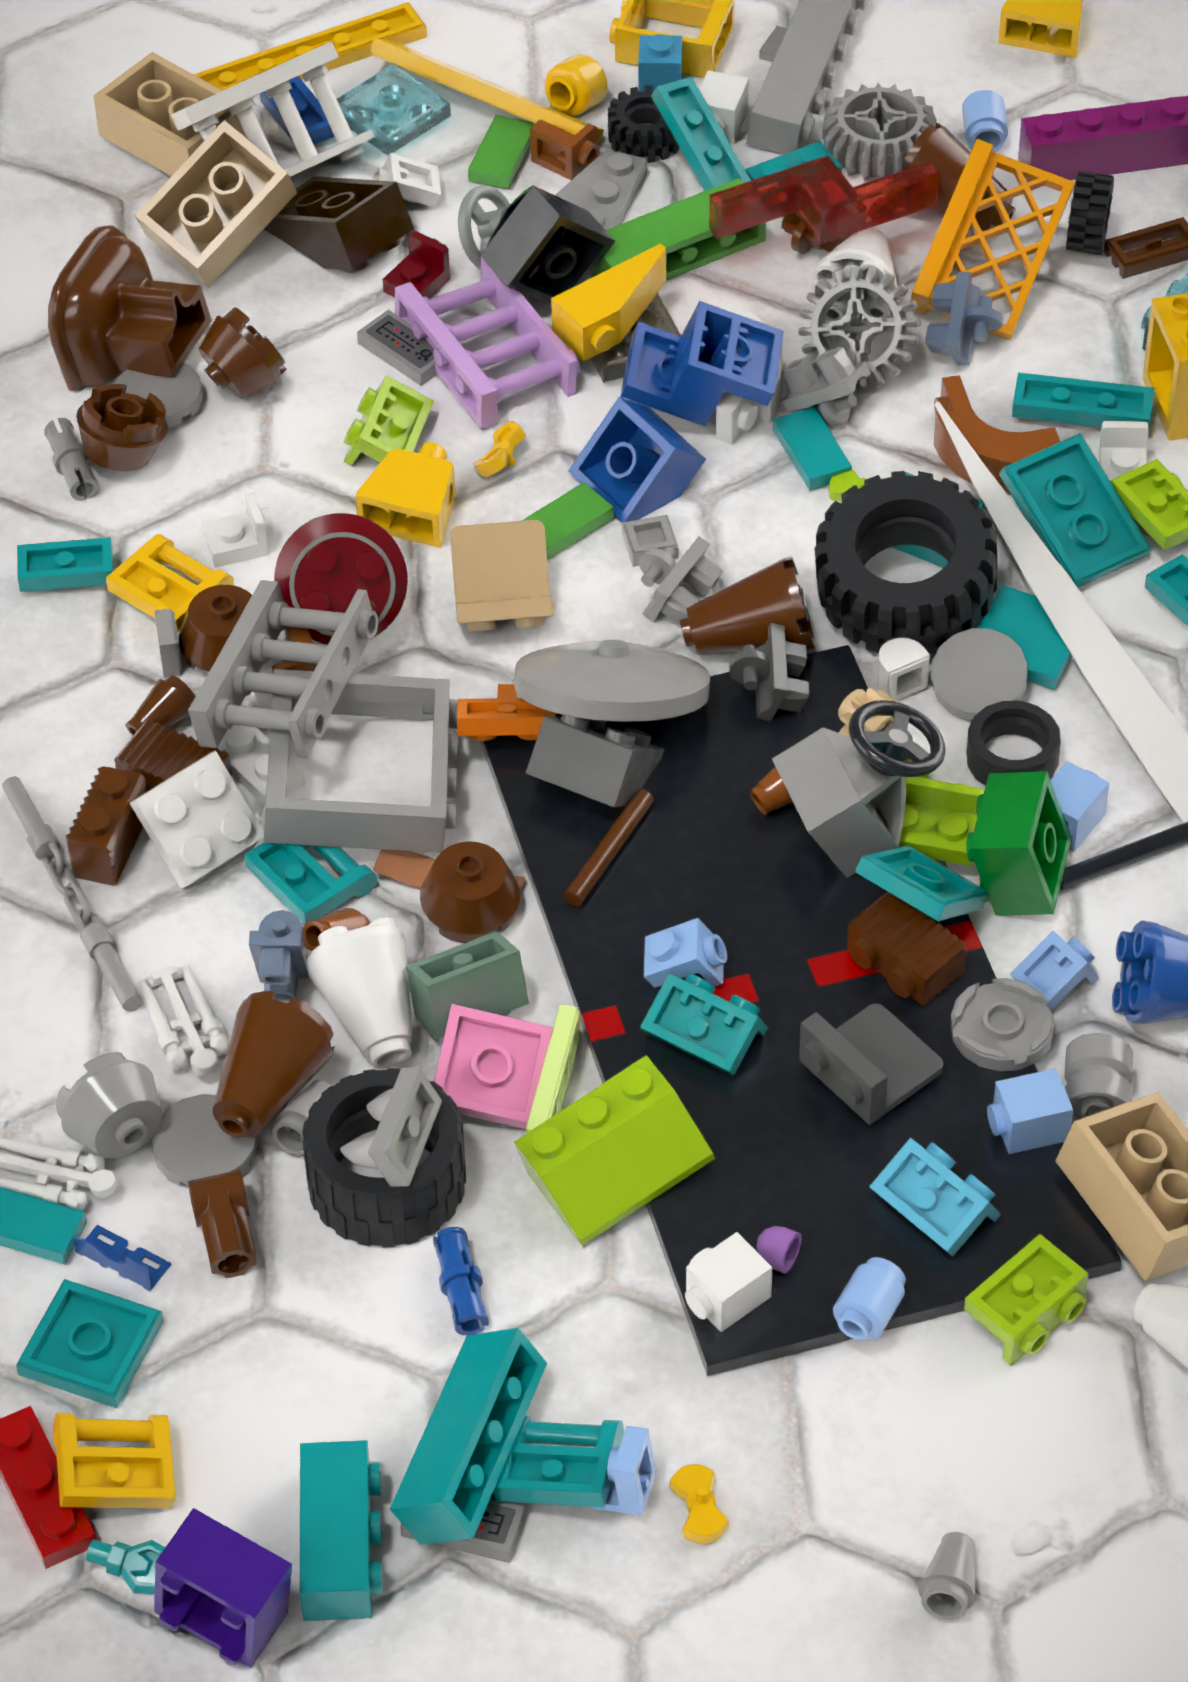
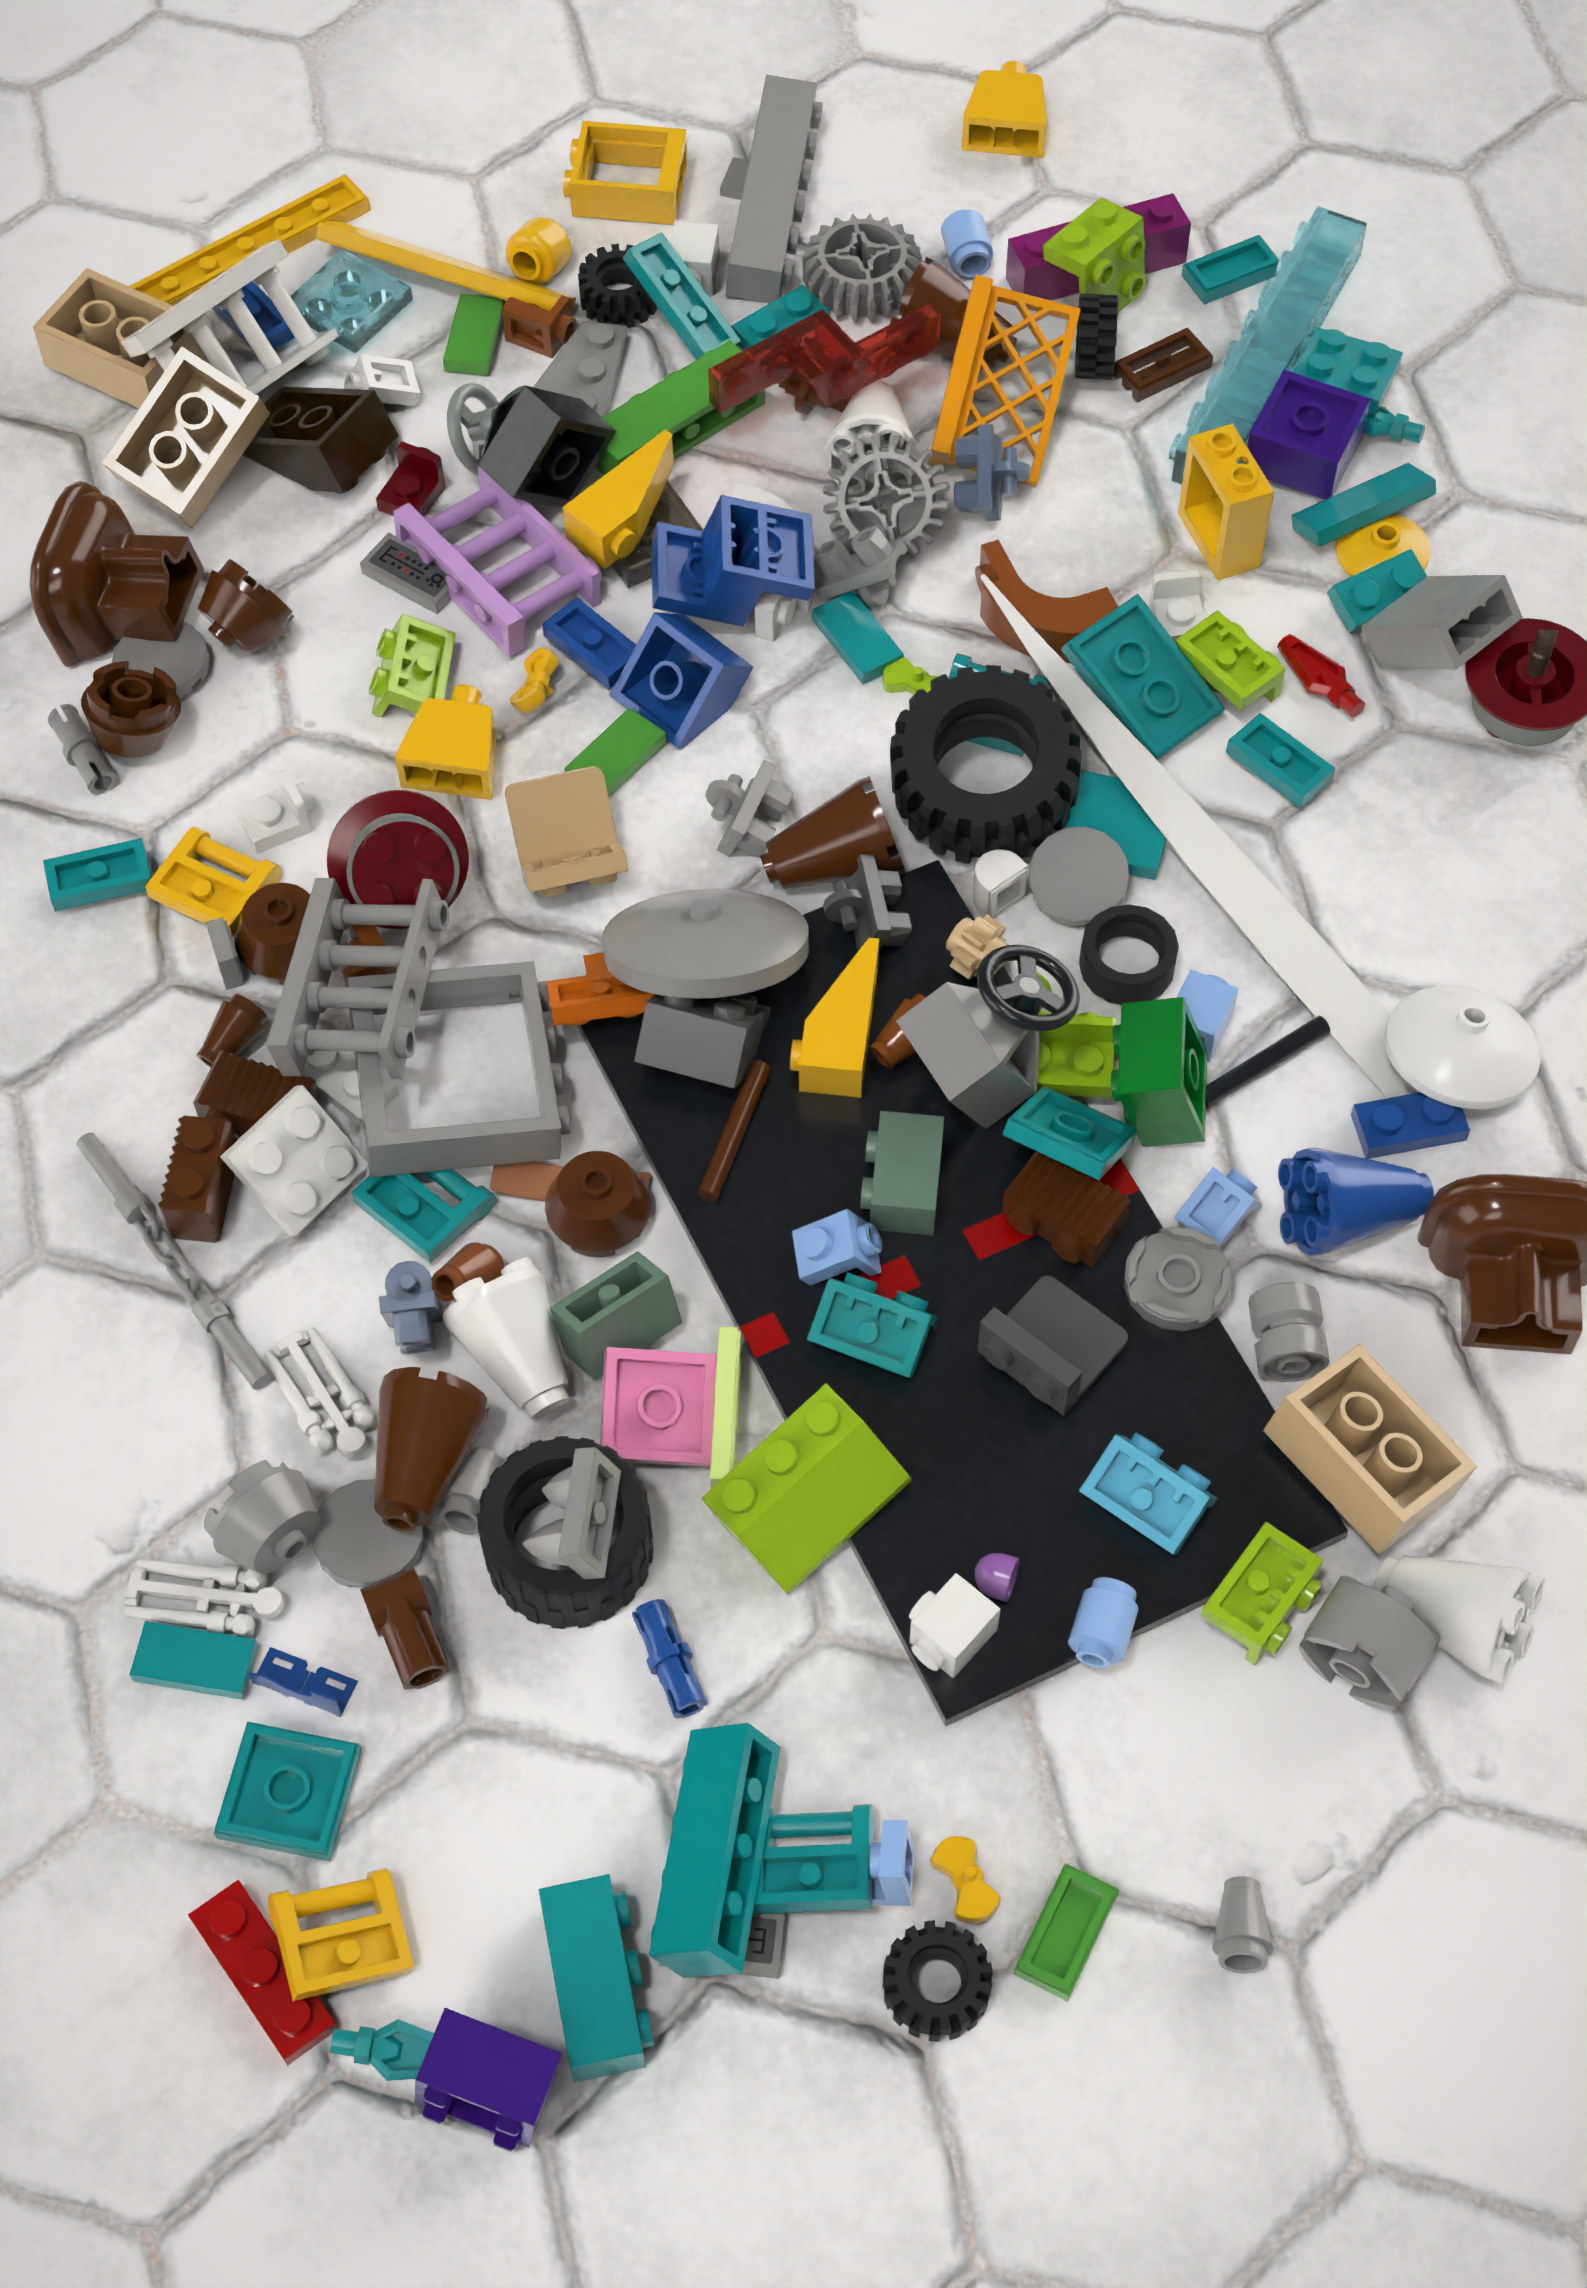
camera: 10 degrees left, 10 degrees up
(556, 421) = (589, 641): none -> blue plate
(648, 533) = (708, 762): light grey tile -> none
(654, 1609) = (931, 2017): none -> black tyre
(659, 60) = (622, 216): dark azure brick -> none
(723, 772) = (838, 1030): none -> yellow slope
(760, 899) = (905, 1172): none -> sand green brick
(784, 1560) = (1066, 1932): none -> bright green tile
(1030, 1111) = (1229, 1379): light blue brick -> none
(1080, 400) = (1124, 549): teal plate -> none
(1111, 139) = (1103, 250): none -> lime bracket
(1117, 1348) = (1369, 1642): none -> light grey brick

